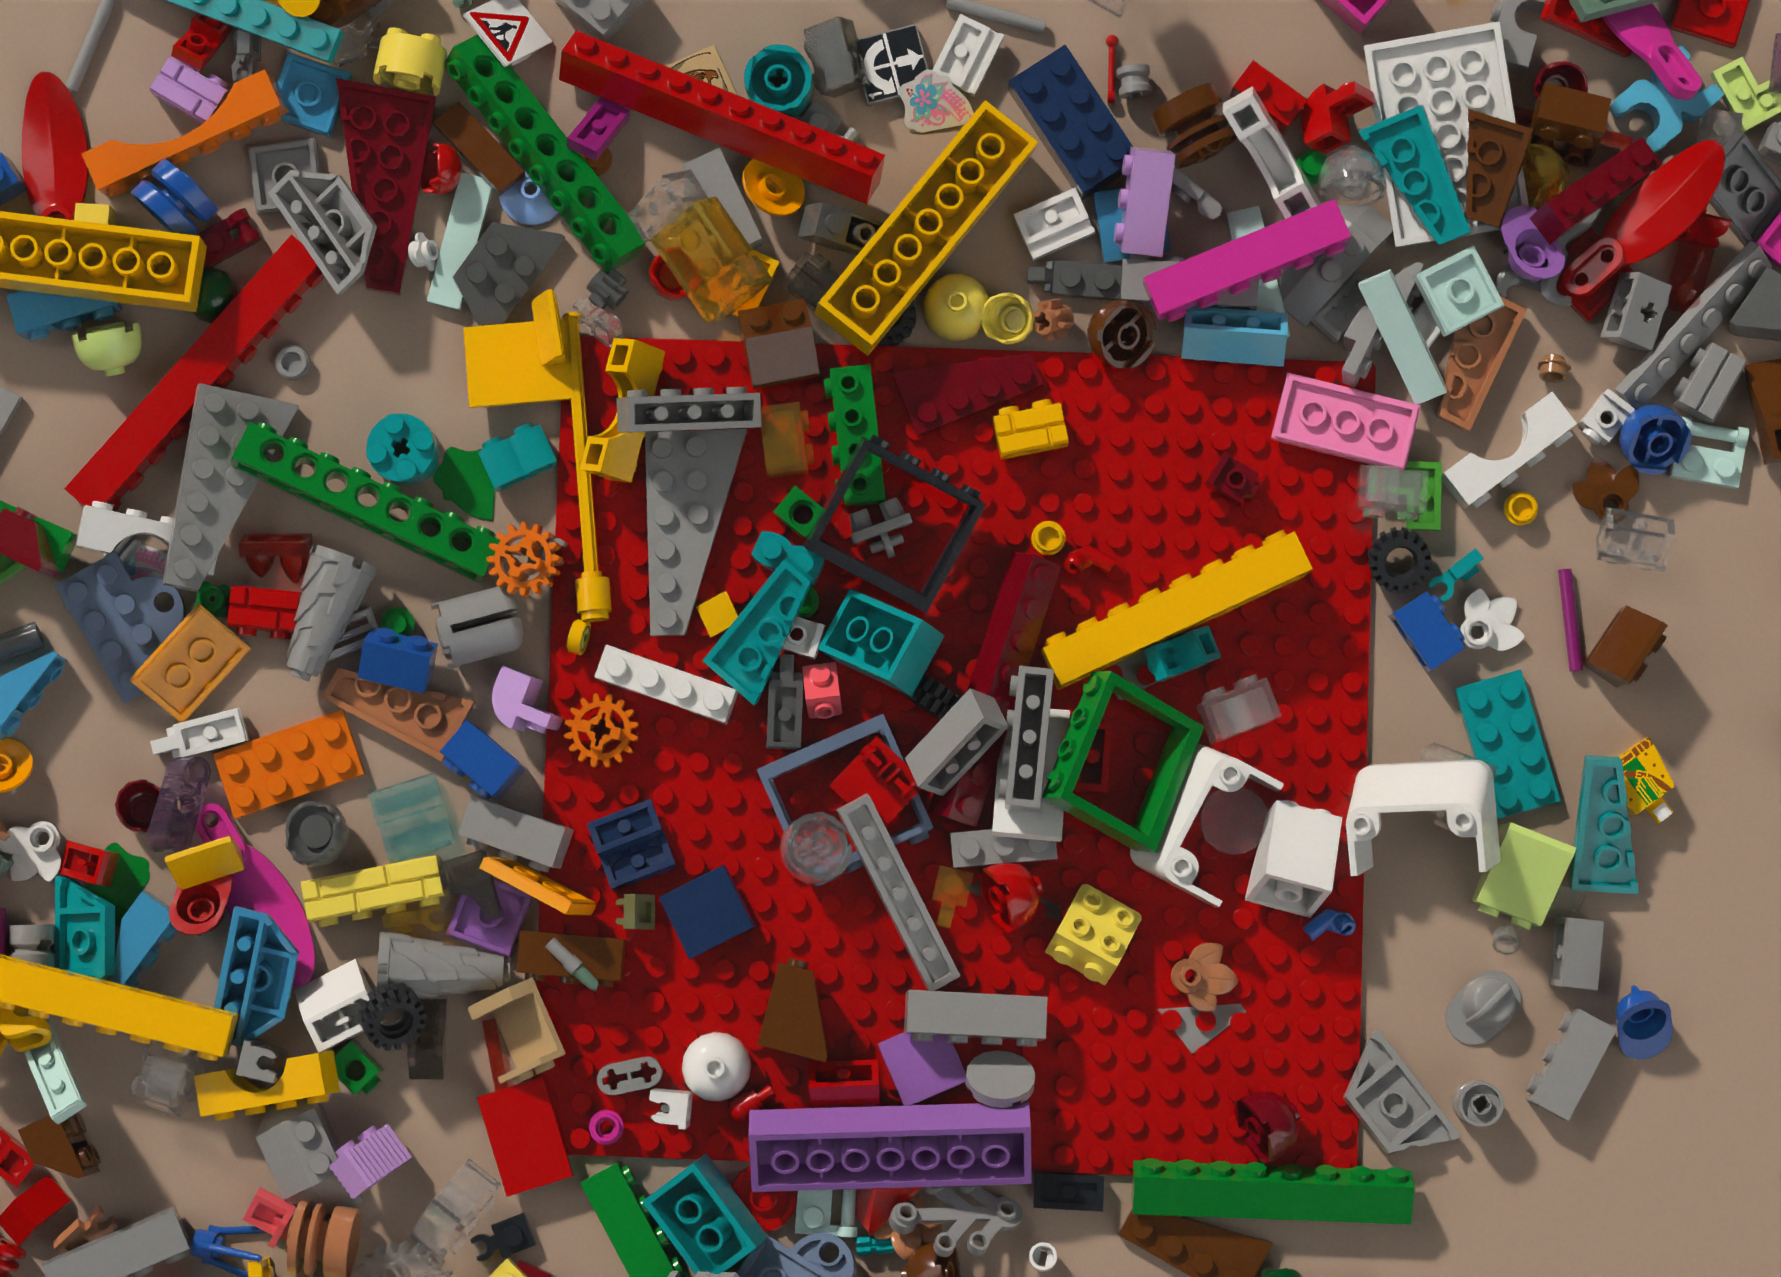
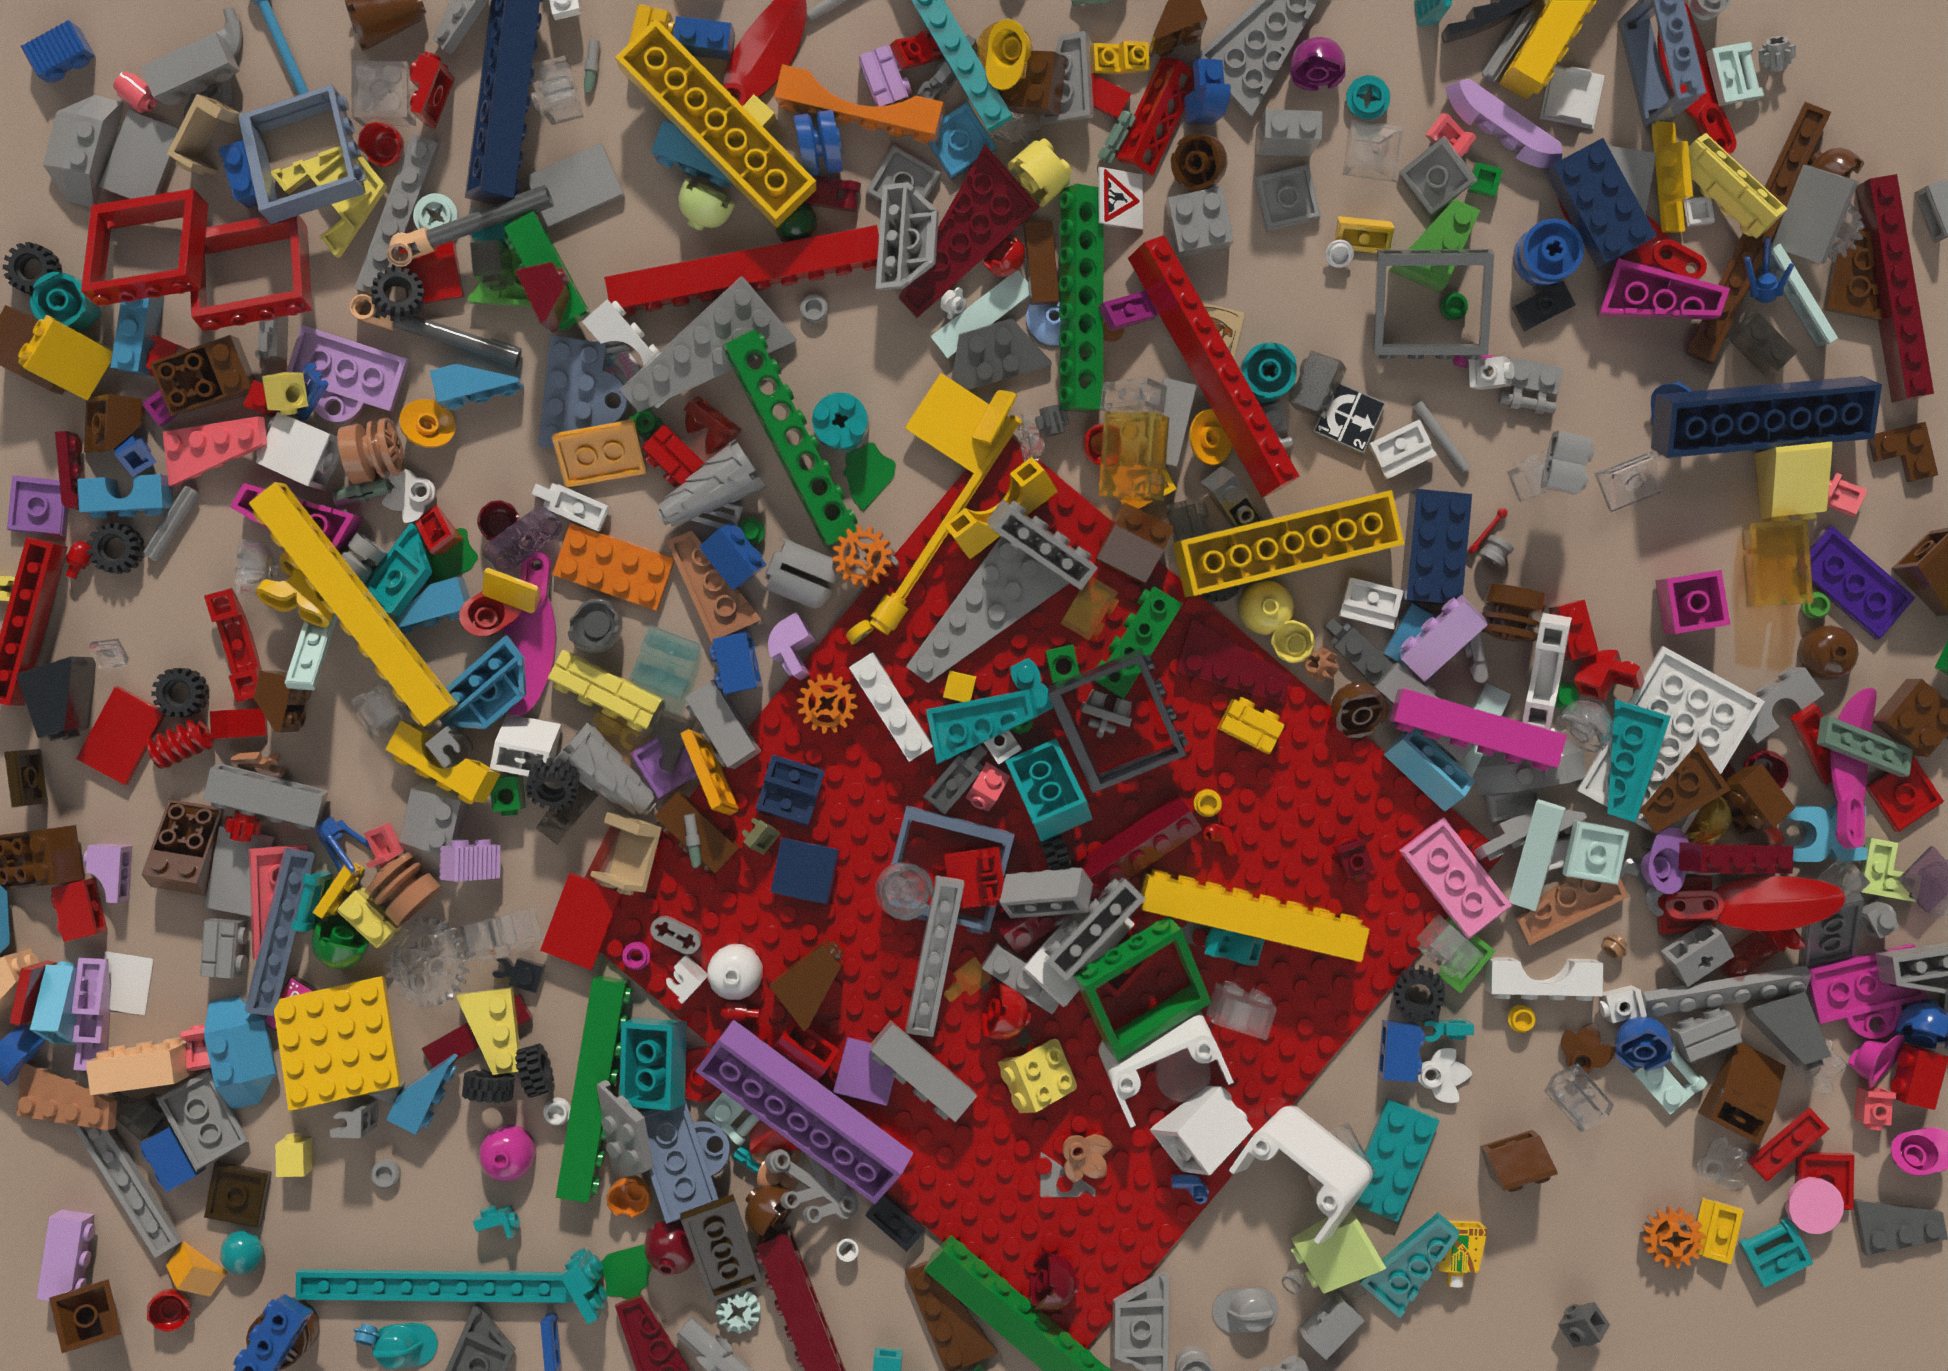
camera: 30 degrees right, 5 degrees up
(517, 457) = (910, 484): teal brick -> none
(933, 103) = (1356, 464): sticker -> none
(1000, 1078) = (907, 1122): light grey tile -> none
(1570, 620) = (1495, 1113): magenta bar -> none

